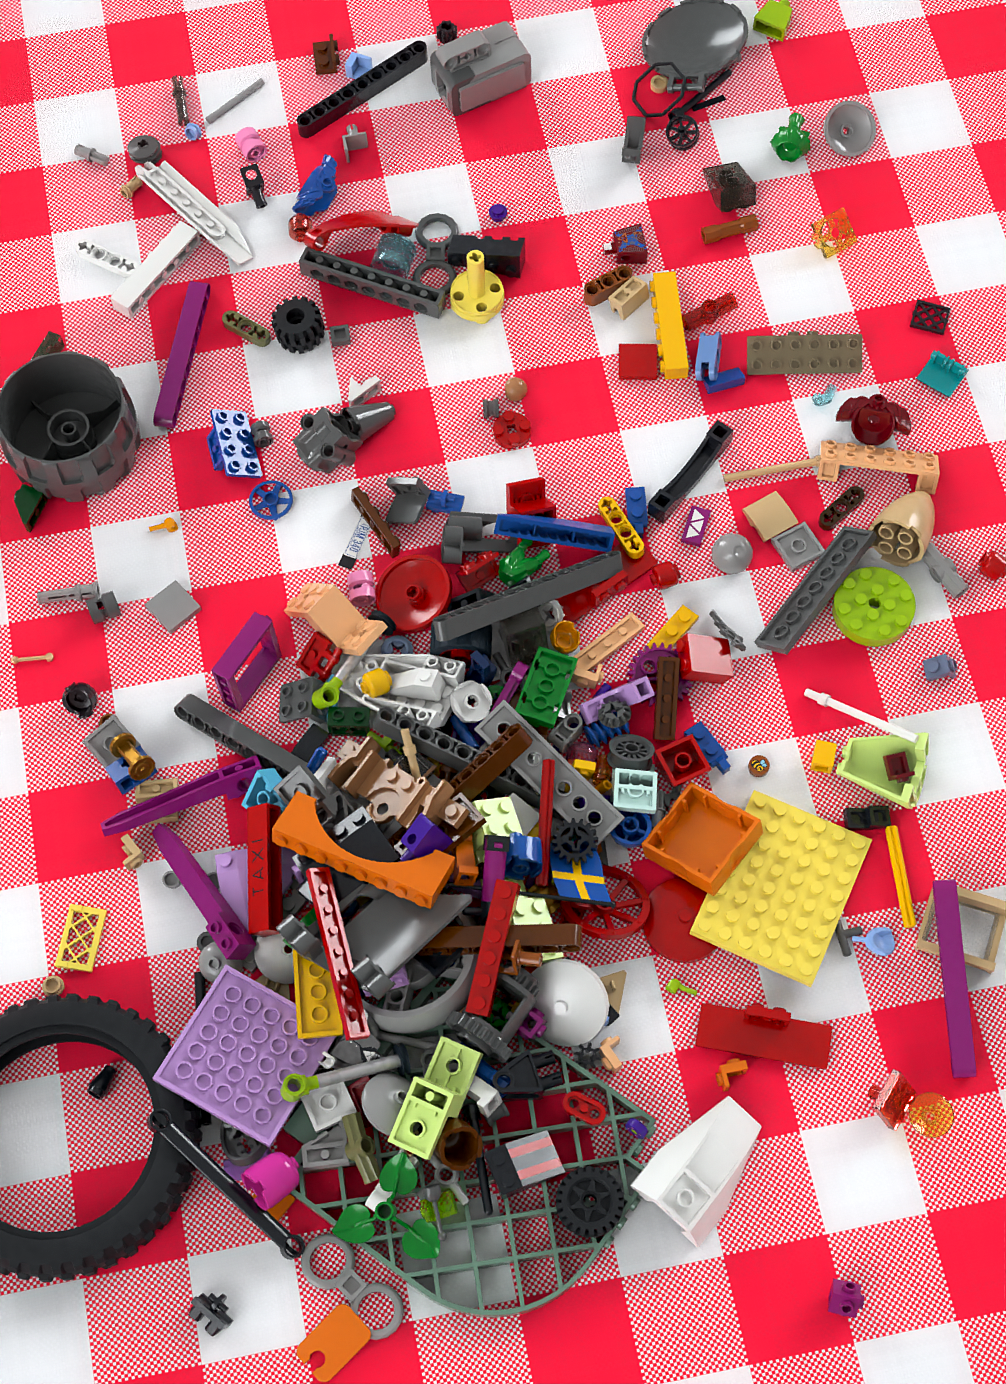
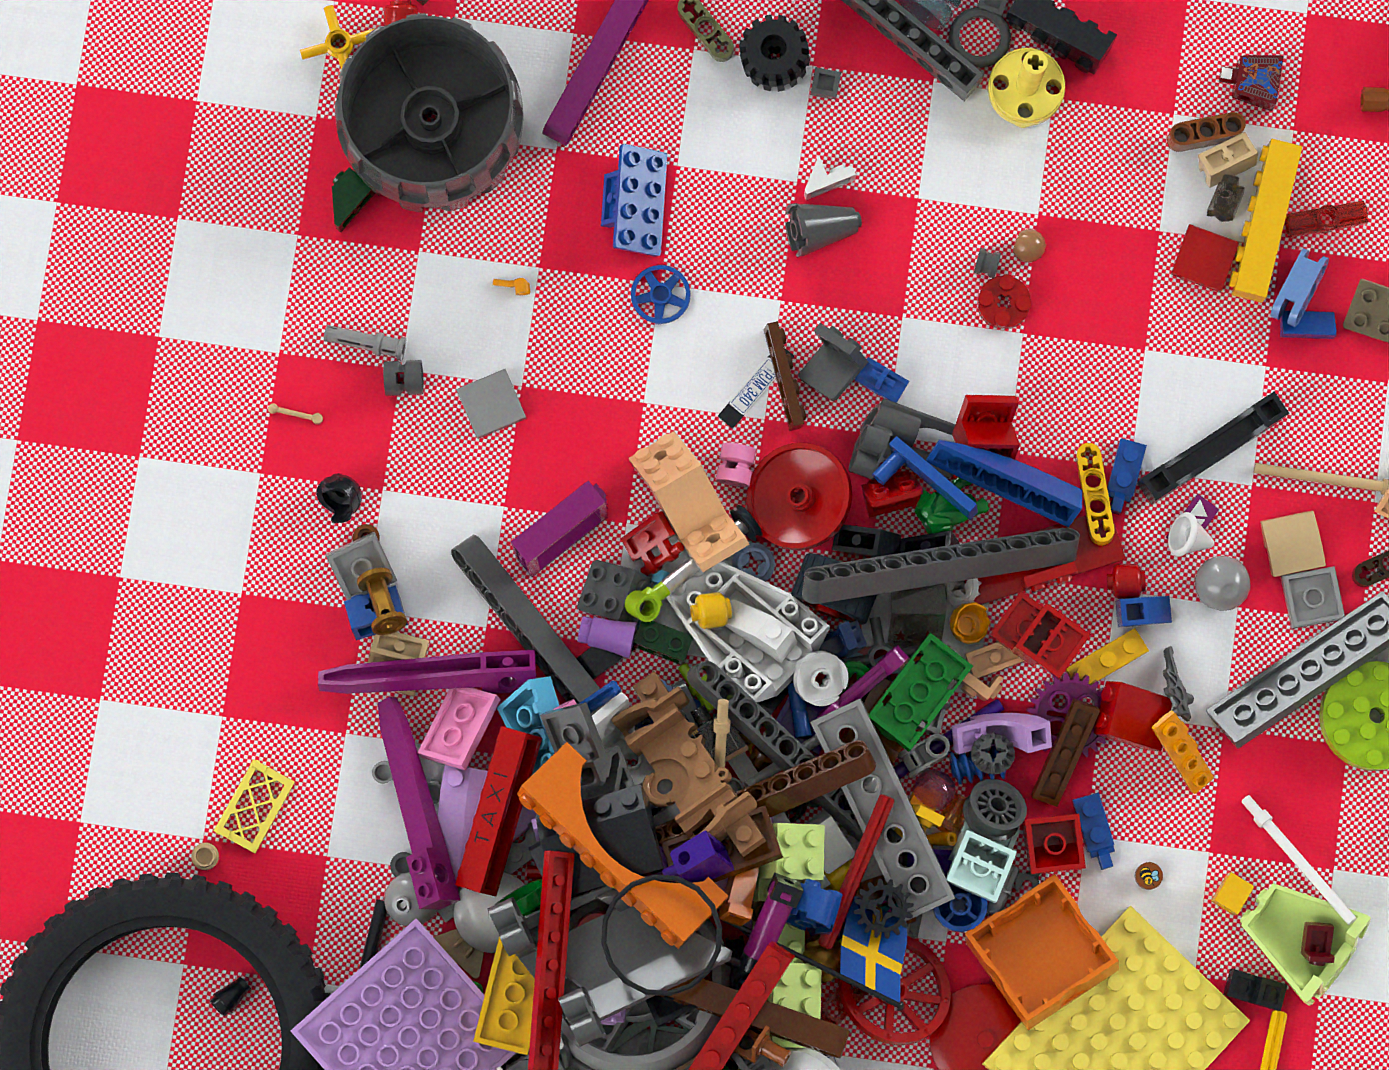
camera: 15 degrees right, 15 degrees up
(135, 855) = (346, 715): tan bracket -> none
(217, 826) = (458, 727): none -> bright pink plate
(261, 433) = (677, 196): dark grey wheel -> none
(307, 726) = (608, 635): none -> medium lavender plant
(326, 441) = (756, 246): dark grey piece -> none
(416, 944) = (697, 979): none -> black piece
(498, 542) = (905, 455): none -> blue piece
(617, 623) = (1040, 635): none -> red bracket
(637, 320) = (1226, 199): none -> clear smoke hips
(683, 590) = (1143, 611): none -> blue slope
(696, 530) = (1188, 536): none -> white hat
(749, 668) = (1183, 751): none -> light orange bracket

